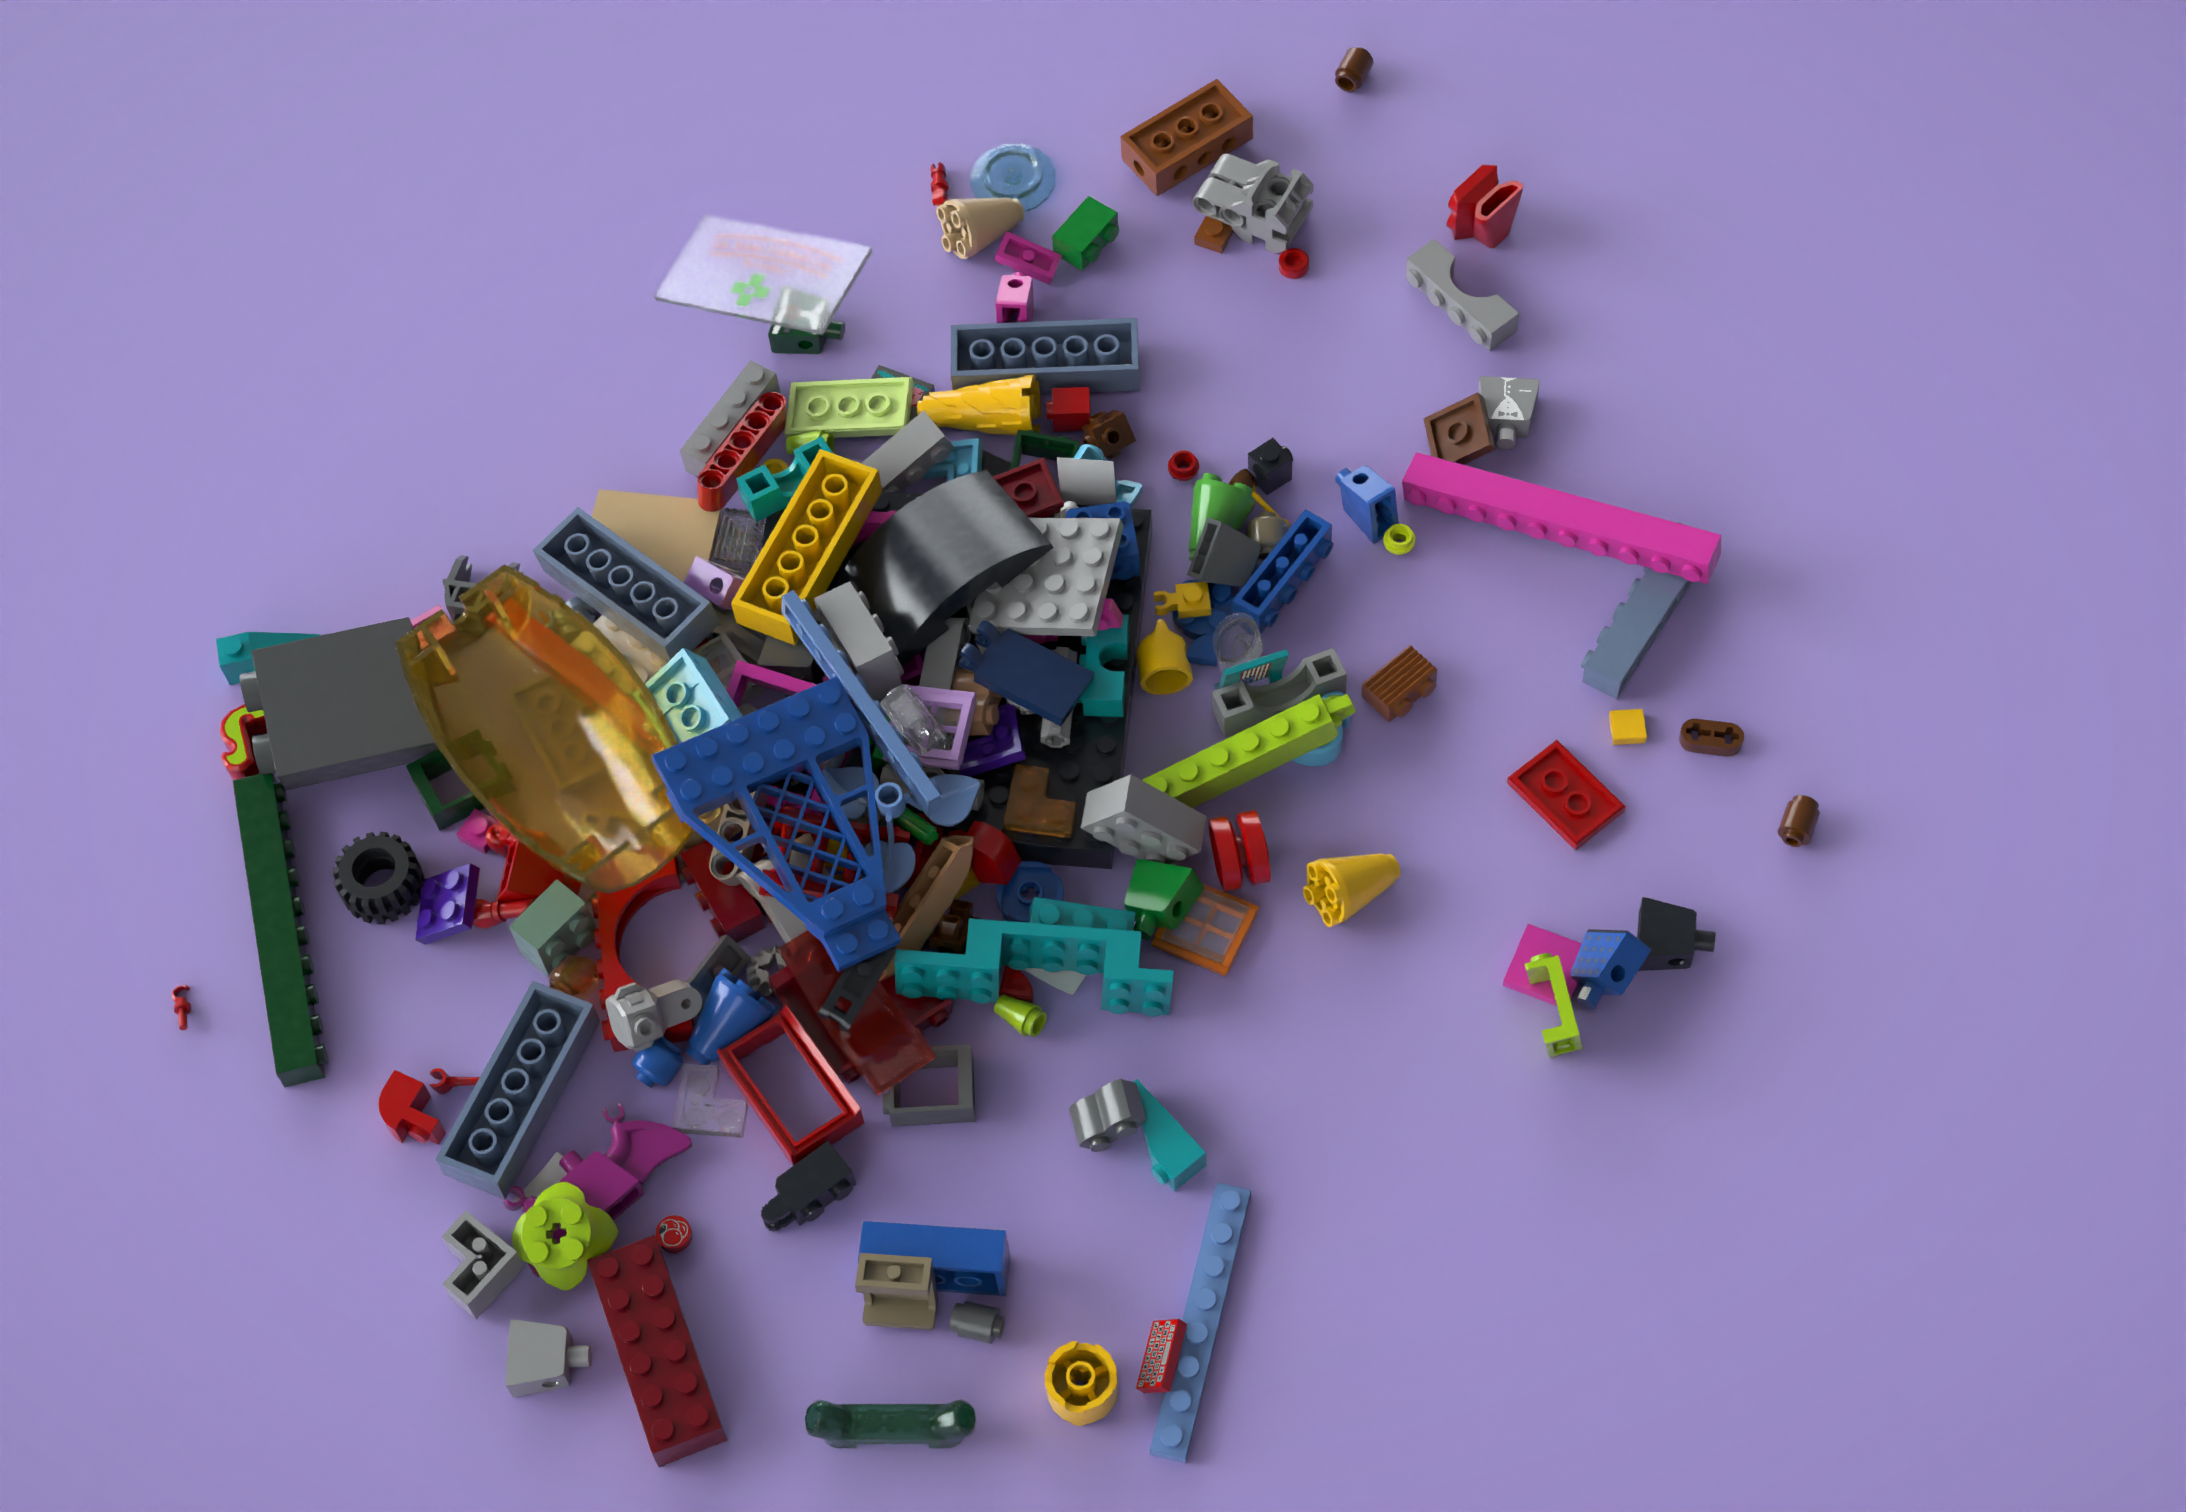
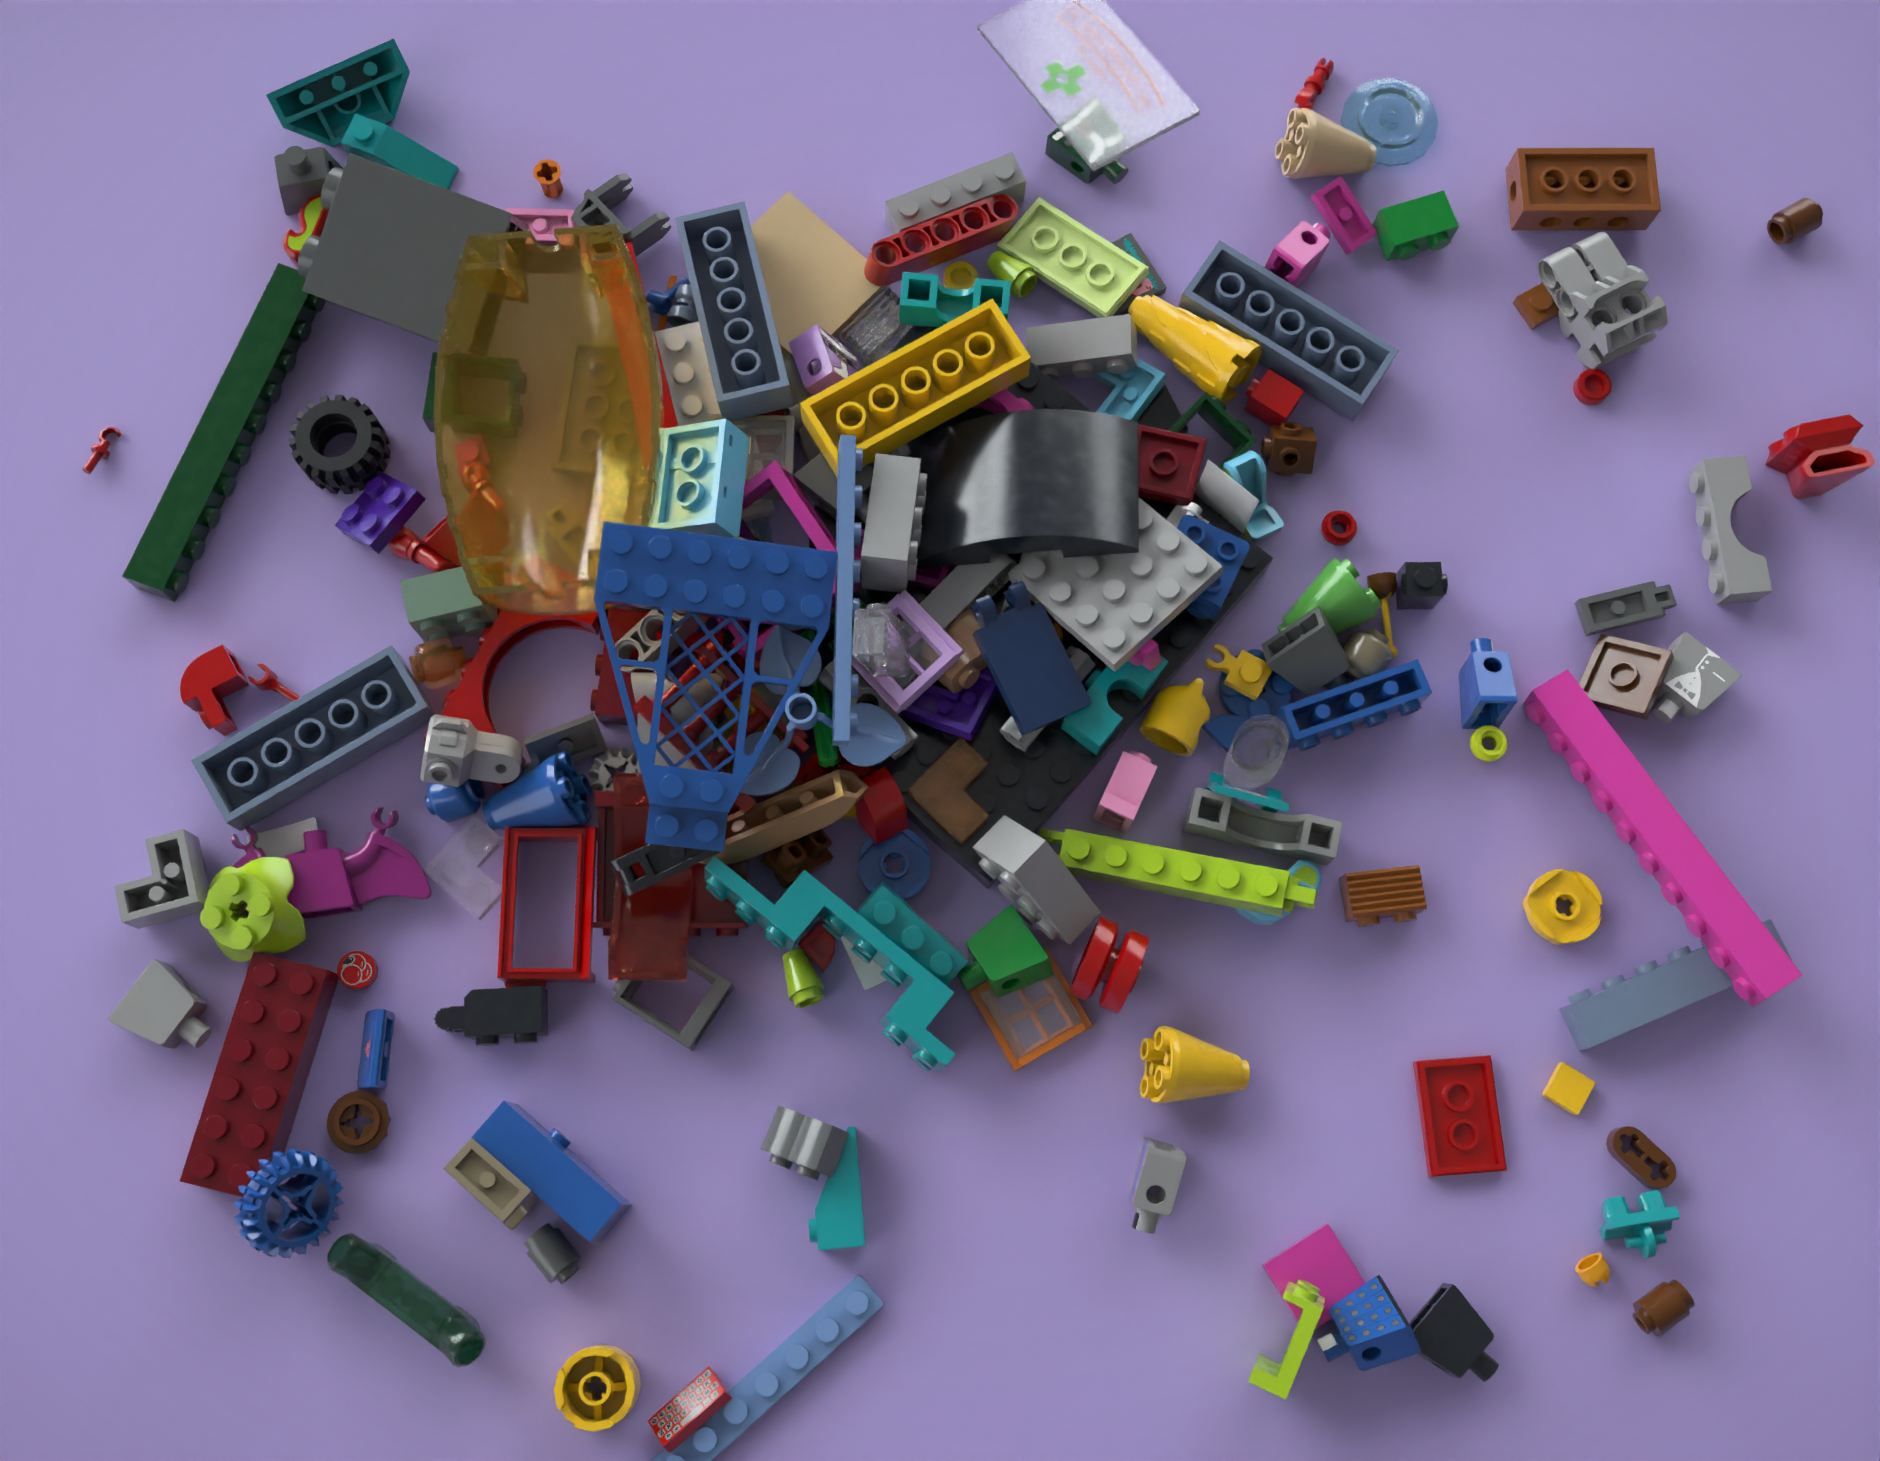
camera: 25 degrees right, 15 degrees up
(187, 644) = (327, 100): none -> teal wedge
(204, 710) = (302, 175): none -> dark grey torso
(400, 591) = (548, 174): none -> orange piece
(729, 1277) = (375, 1049): none -> blue slope
(742, 1416) = (311, 1193): none -> blue gear
(759, 1320) = (346, 1109): none -> reddish brown gear
(1162, 729) = (1125, 791): none -> bright pink hips
(1380, 959) = (1160, 1166): none -> light grey torso
(1426, 391) = (1624, 607): none -> dark grey hinge
(1533, 627) = (1548, 922): none -> yellow plate
(1733, 830) = (1592, 1269): none -> light orange hinge
(1742, 780) = (1642, 1228): none -> teal hips

